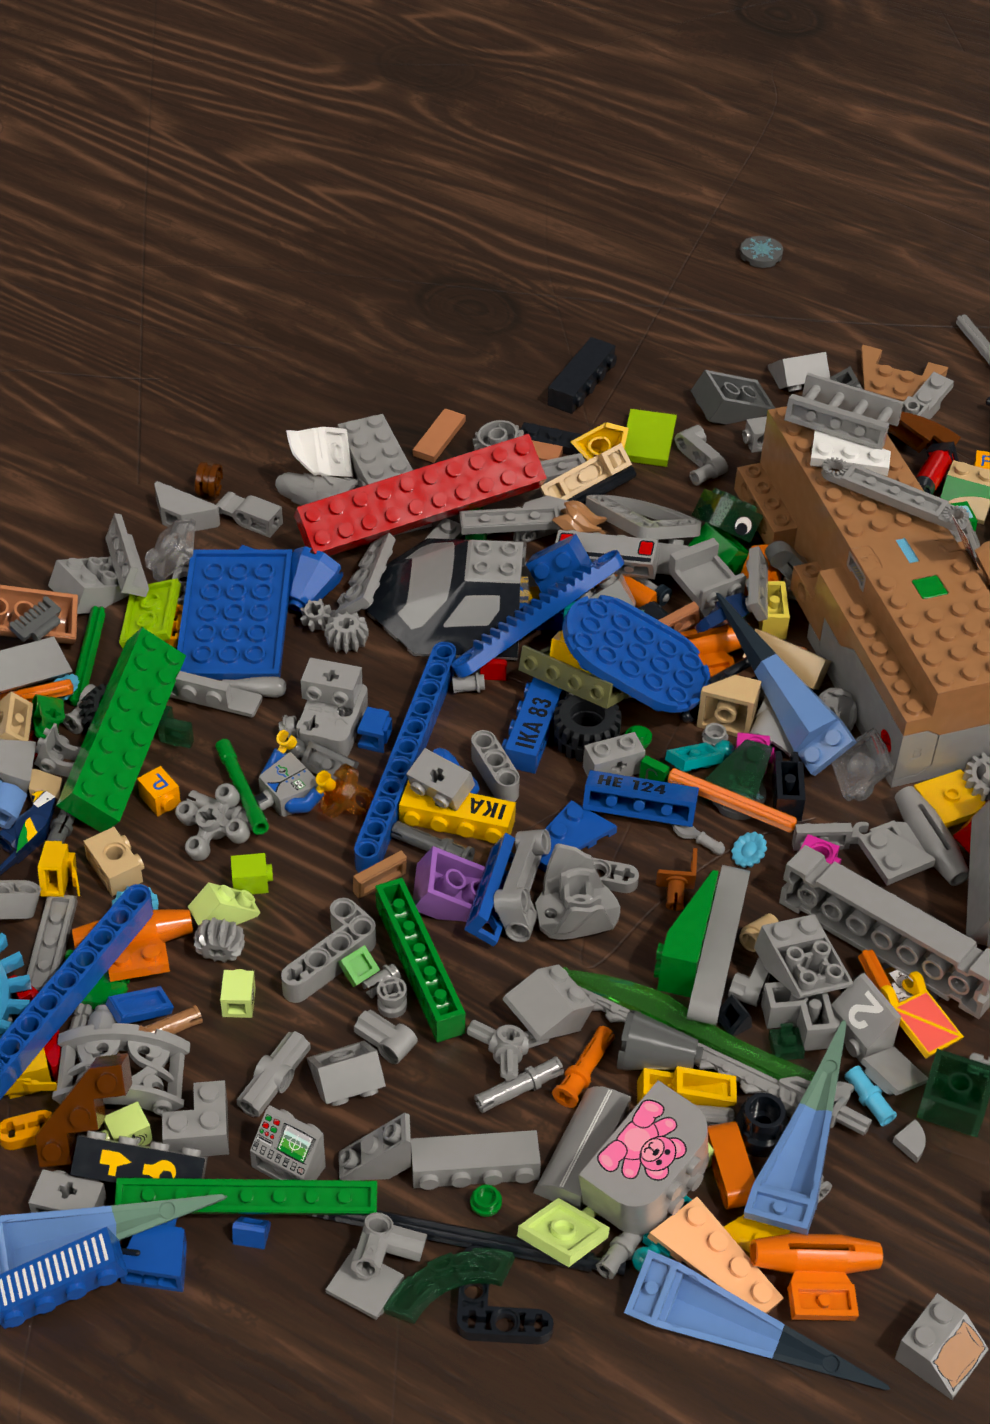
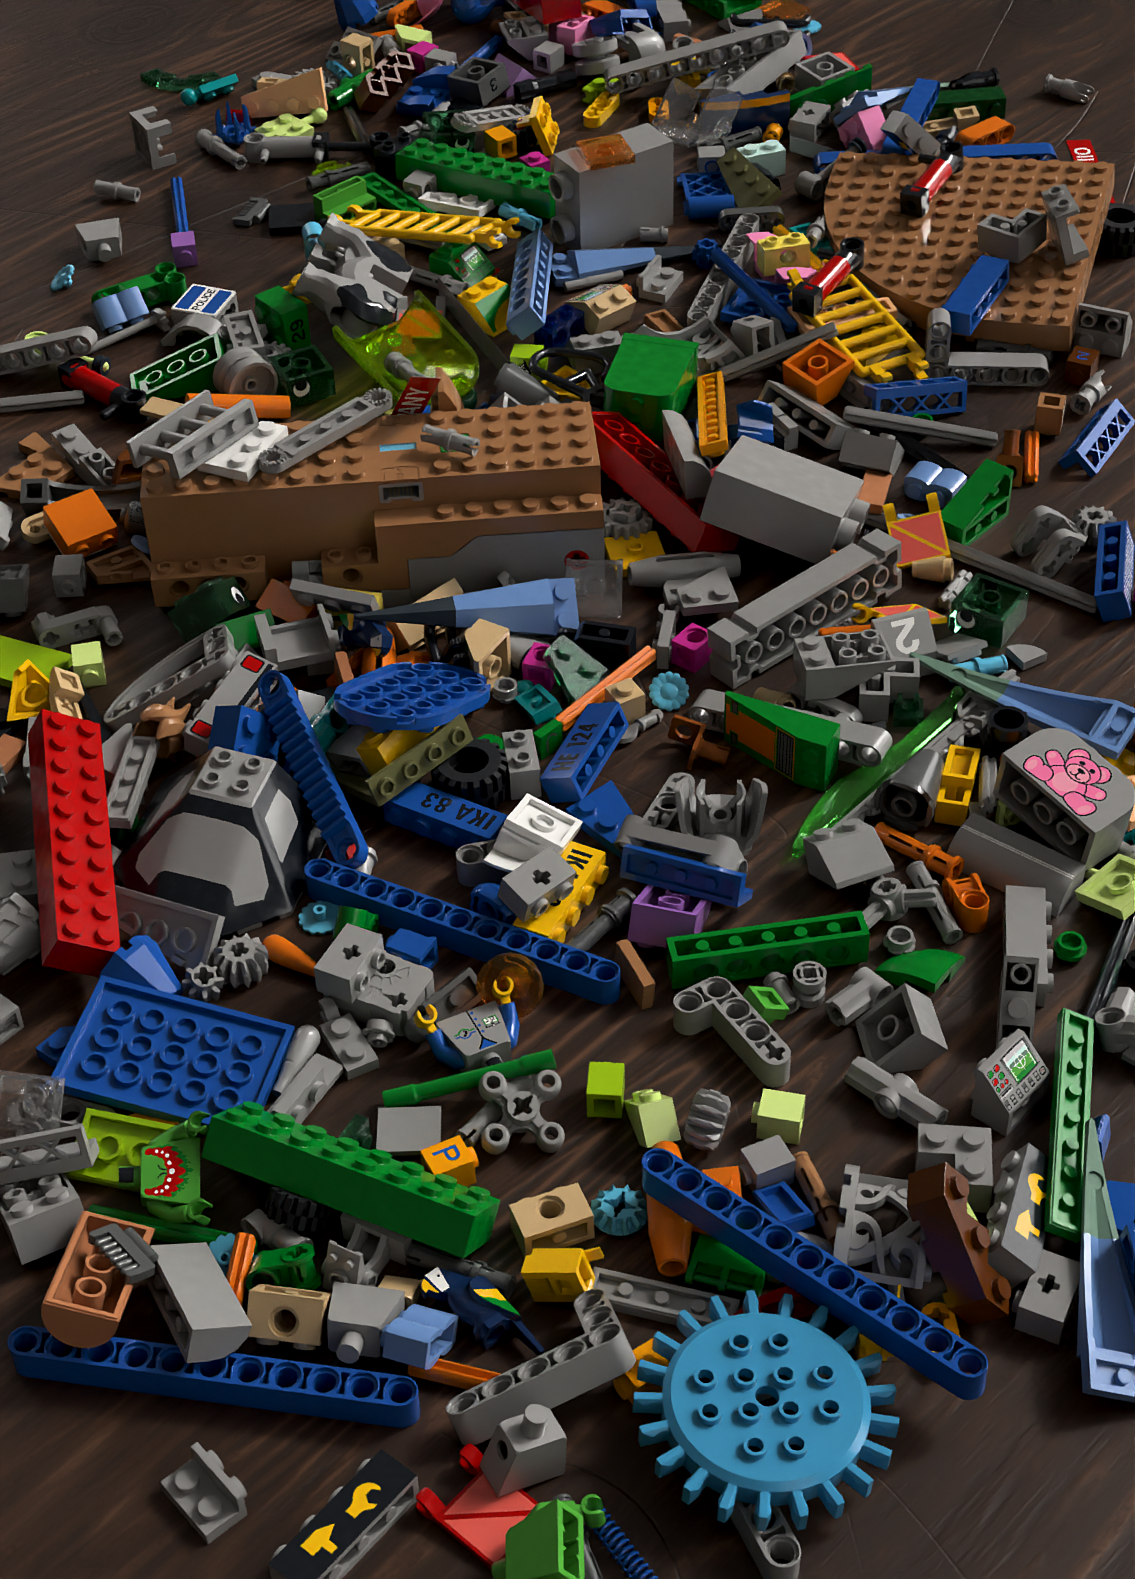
camera: 75 degrees left, 5 degrees down
(113, 633) = (171, 1173): none -> bright green torso
(184, 988) = (766, 1164): none -> light grey brick
(195, 764) = (408, 1129): none -> light grey piece
(267, 719) = (346, 1040): none -> light grey plate
(365, 654) = (288, 955): none -> orange piece
(389, 686) = (356, 917): none -> green piece
(409, 672) = (318, 917): none -> medium azure piece
(437, 1084) = (921, 967): none -> green brick
(467, 1056) = (899, 940): none -> light grey plate
(515, 774) = (529, 831): none -> white piece
(529, 1107) = (967, 902): none -> orange piece
(655, 471) = (89, 663): none -> yellowish green brick
(716, 817) = (629, 697): none -> tan brick
(914, 576) = (450, 440): none -> light grey pin

